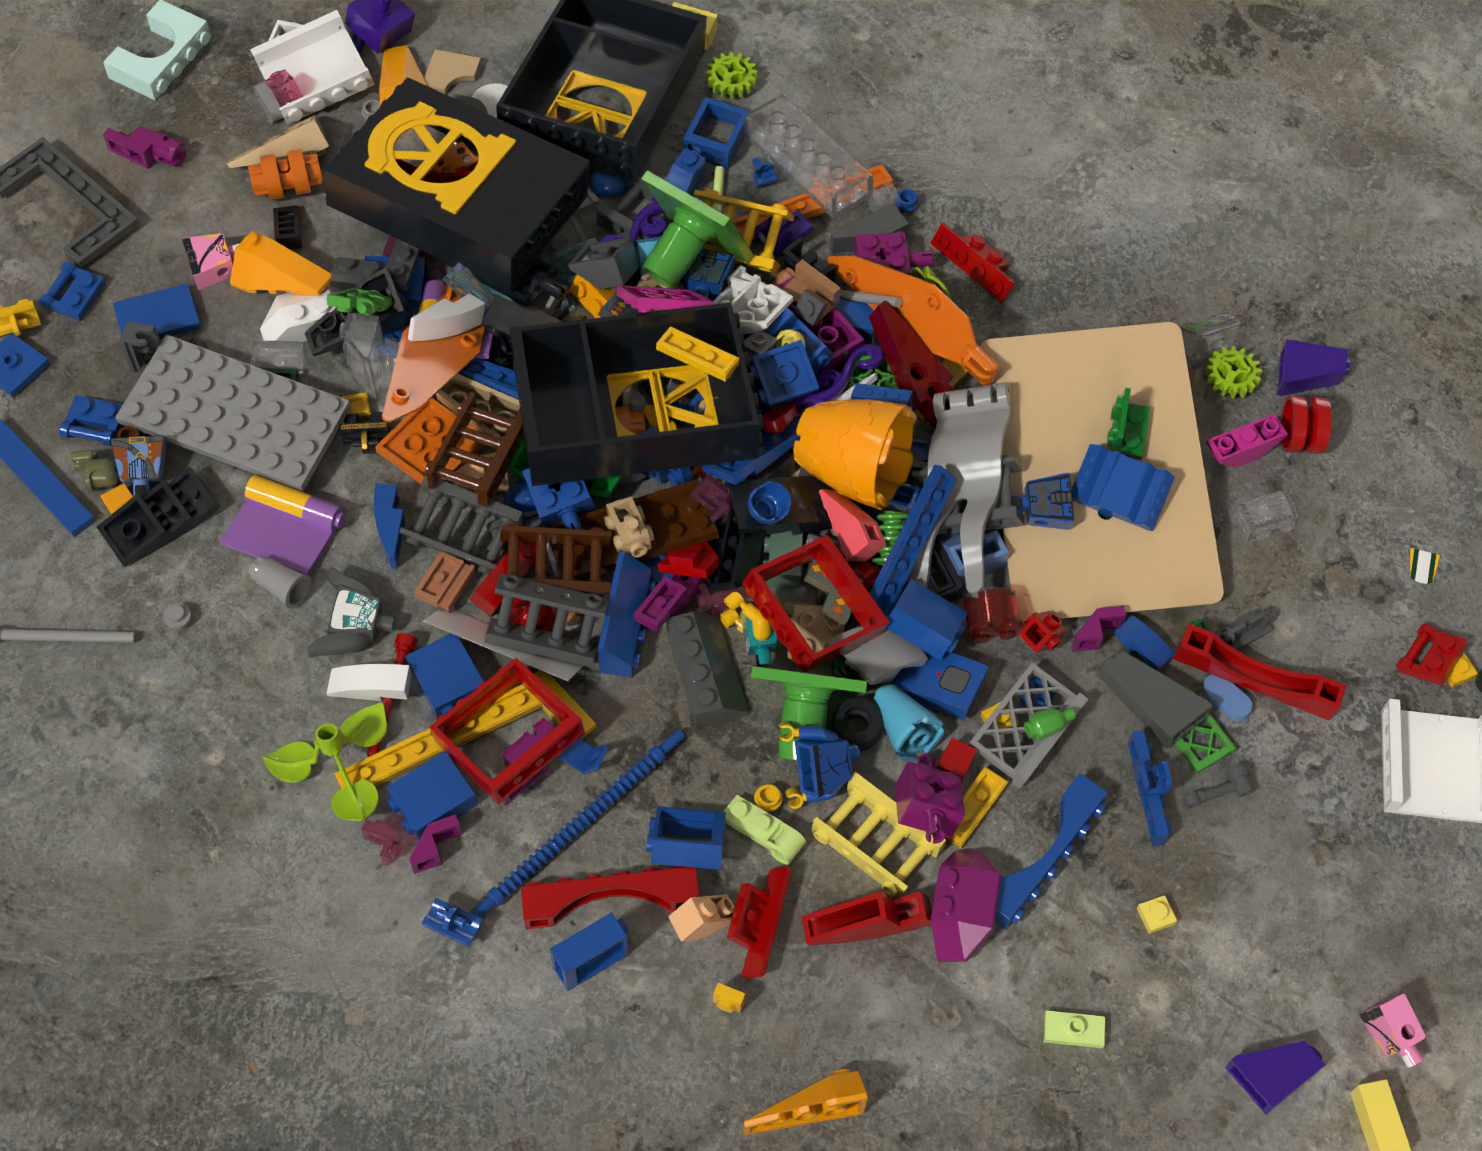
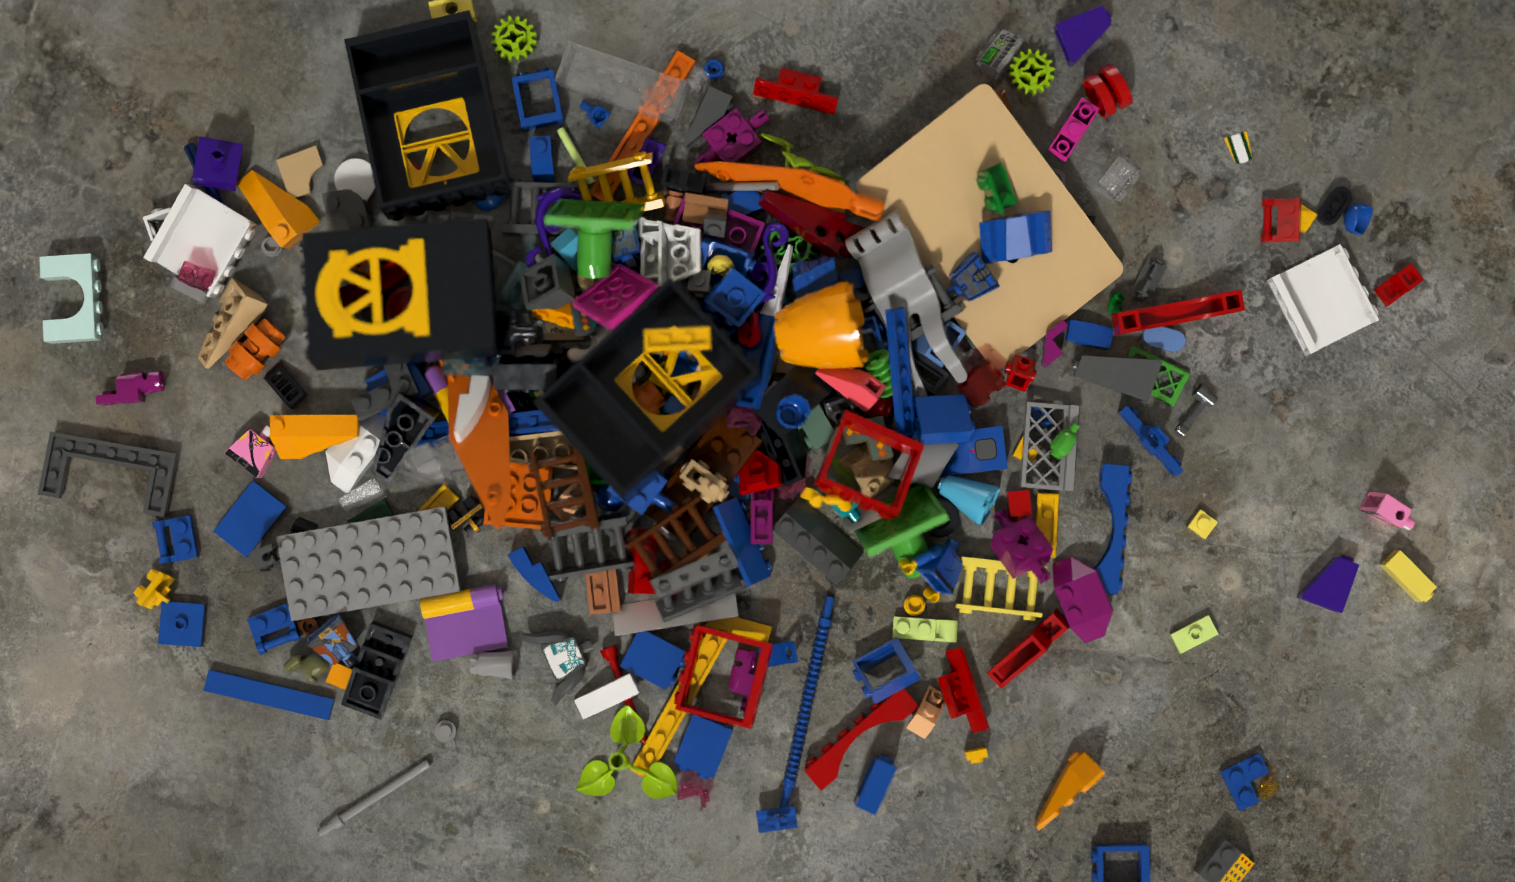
camera: 30 degrees left, 25 degrees up
(365, 301) = (398, 438): bright green plate -> none
(425, 853) = (727, 782): magenta slope -> none

